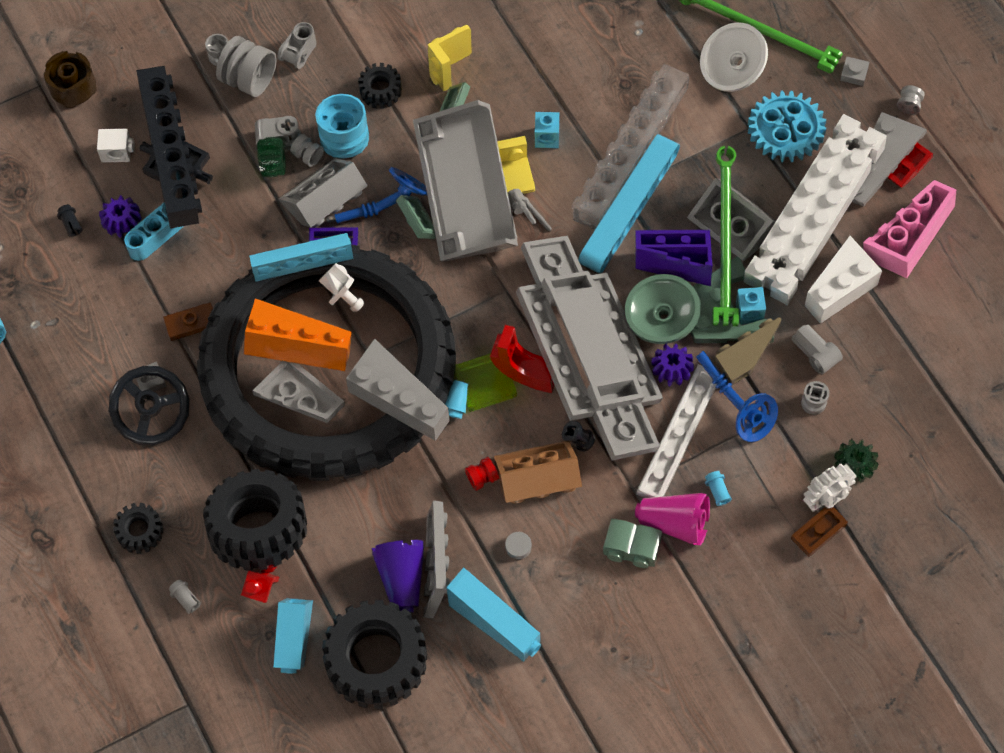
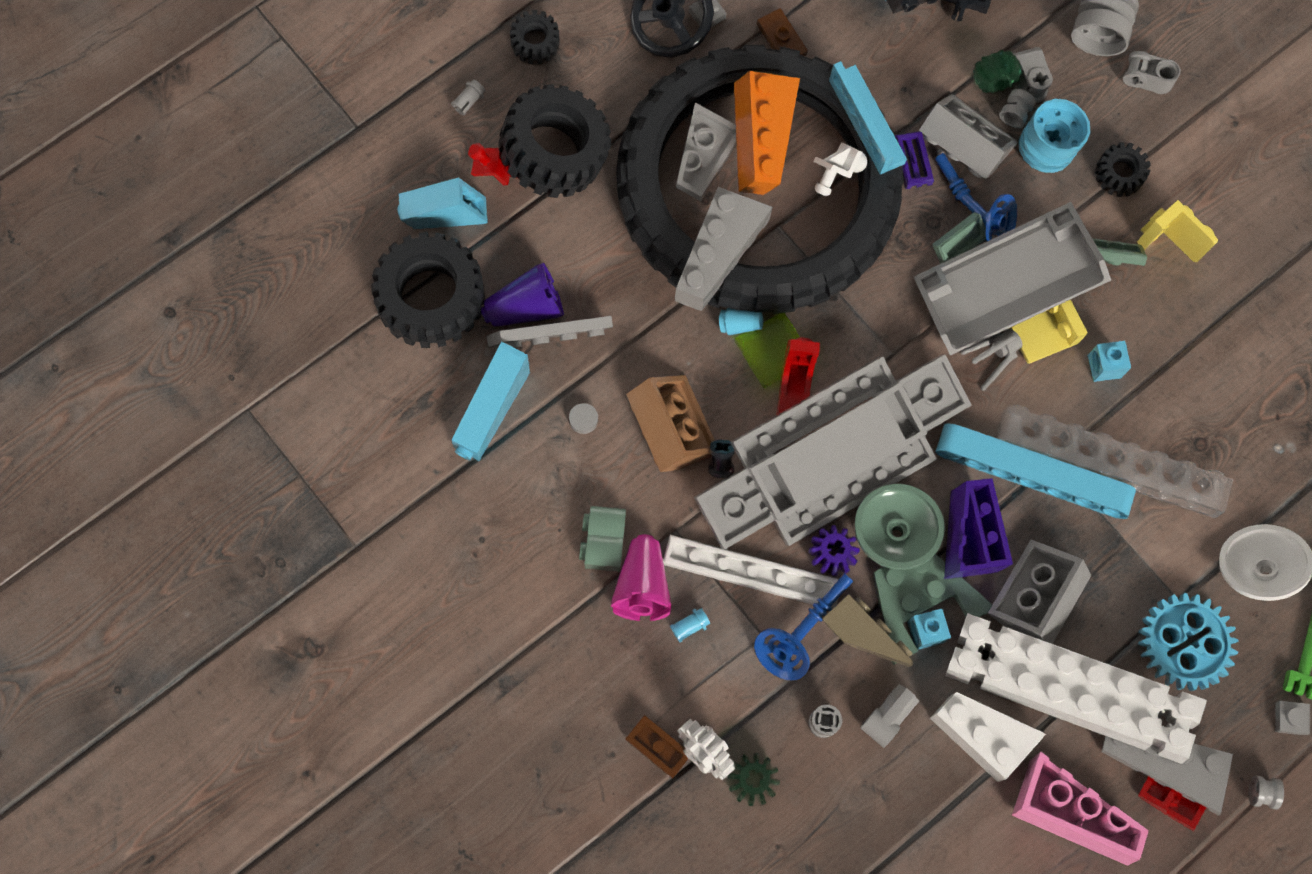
camera: 70 degrees right, 10 degrees up
(481, 474) = (657, 362): red wheel -> none
(725, 287) = (913, 599): bright green hinge -> none

